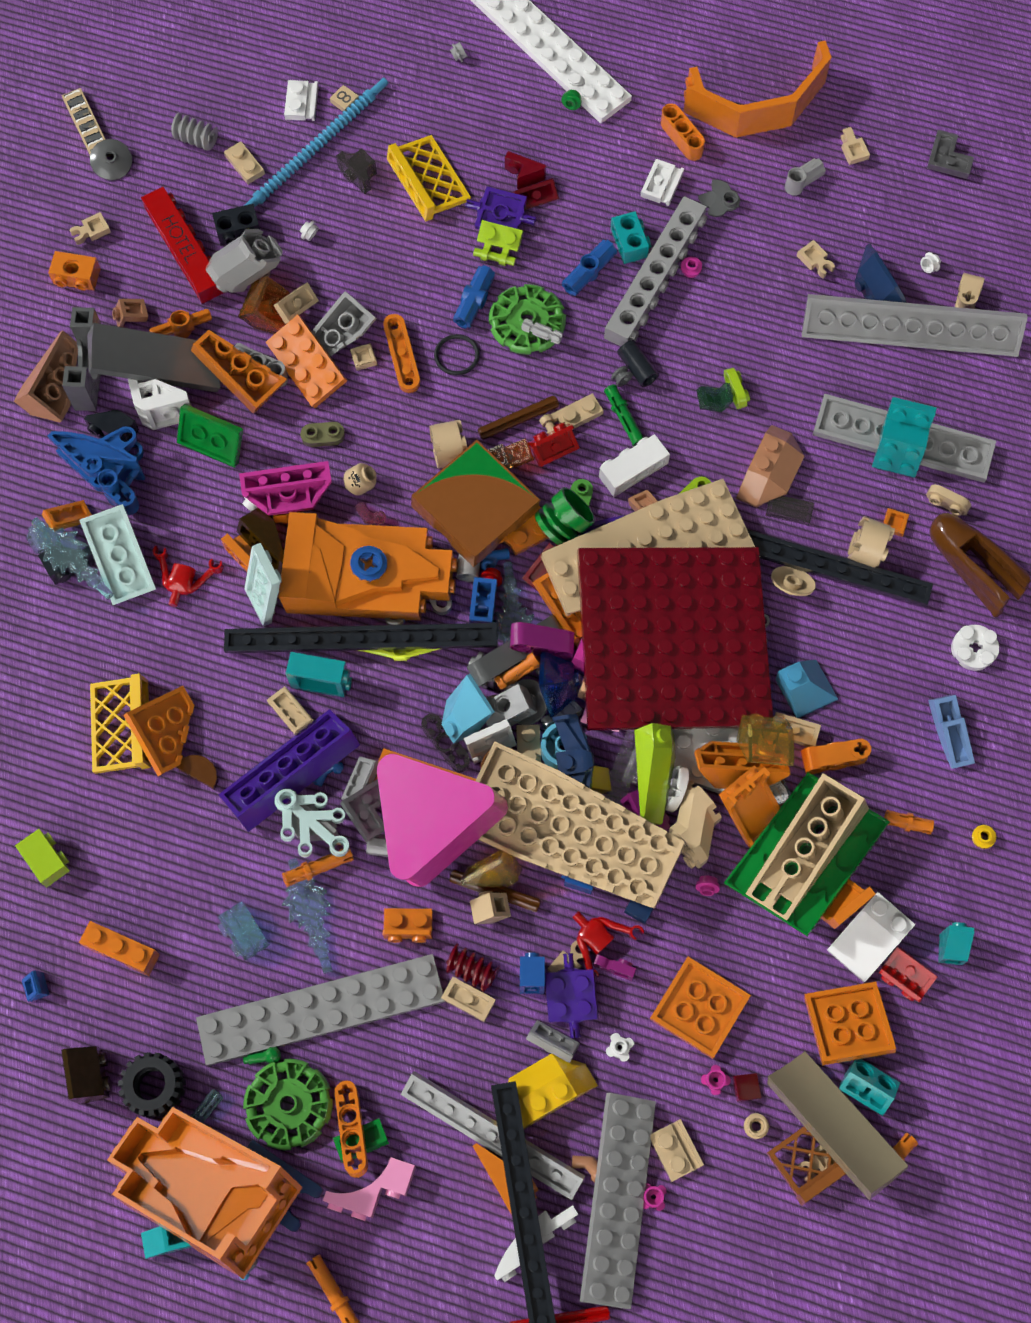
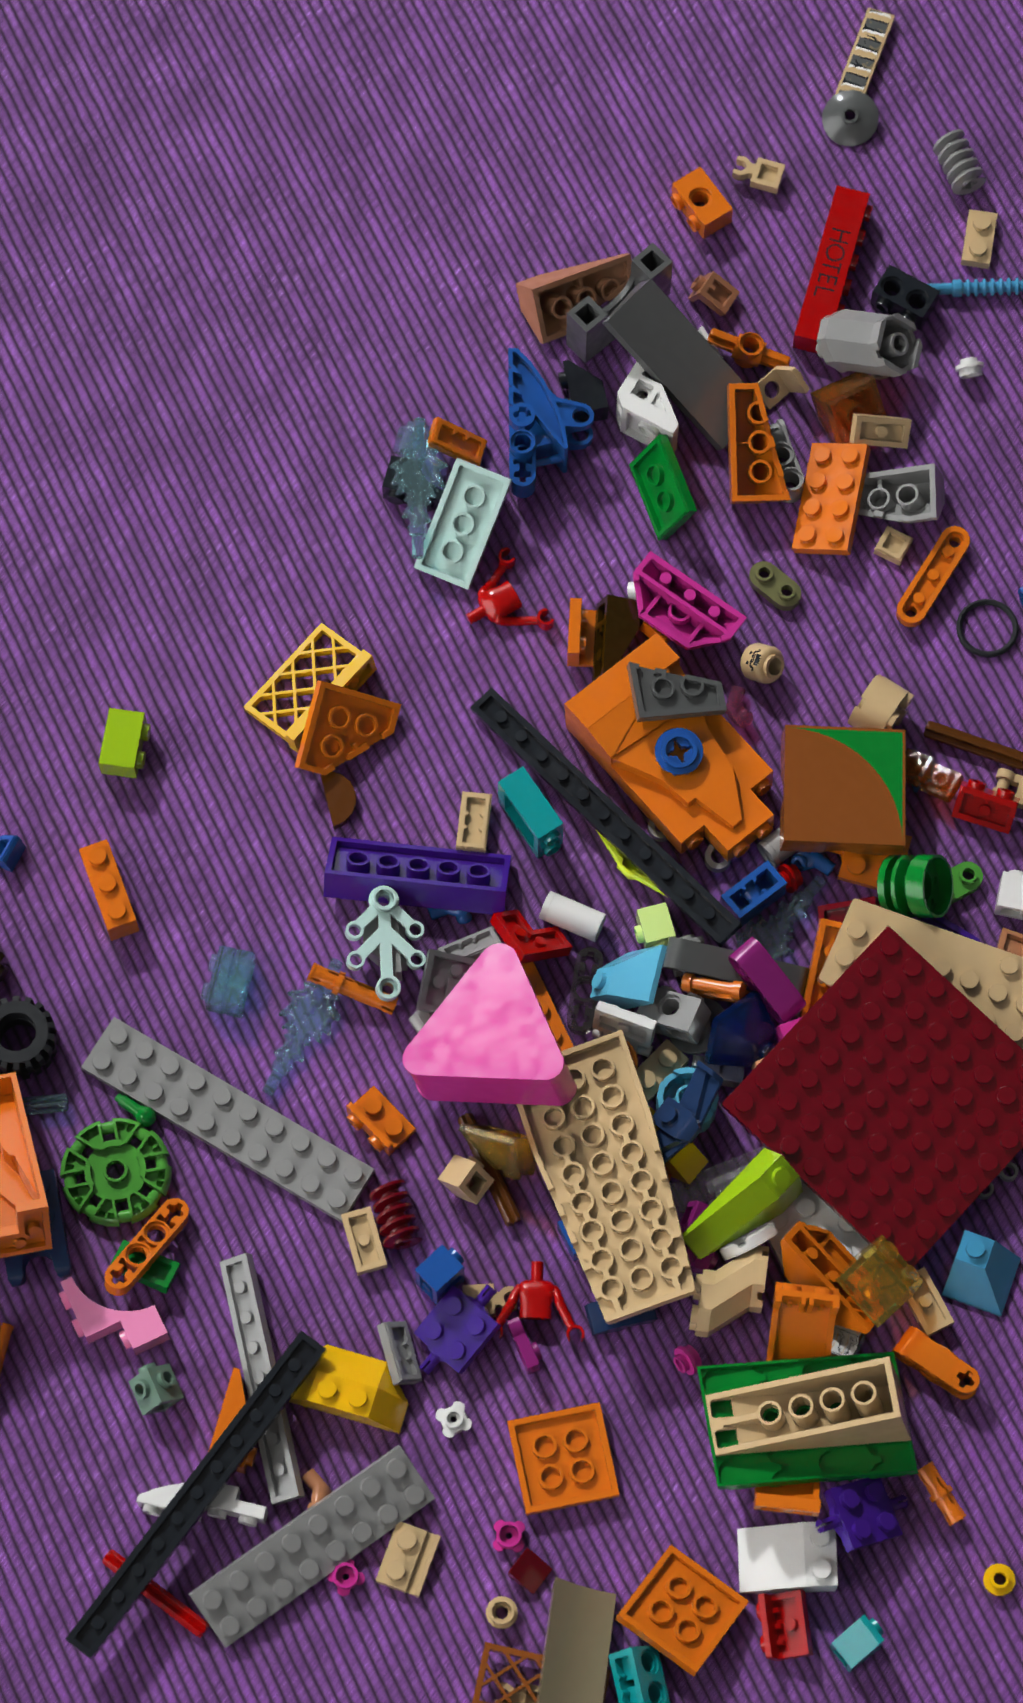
camera: 45 degrees right, 0 degrees up
(219, 320) = (787, 380): none -> tan bracket
(262, 584) = (562, 678): light aqua plate -> none
(334, 537) = (673, 696): none -> dark grey wing
(394, 742) = (529, 943): none -> red plate
(397, 709) = (572, 916): none -> white pin
(439, 1204) = (155, 1388): none -> sand green brick
(448, 672) = (654, 925): none -> yellowish green brick
(886, 873) = (862, 1513): none -> dark purple plate

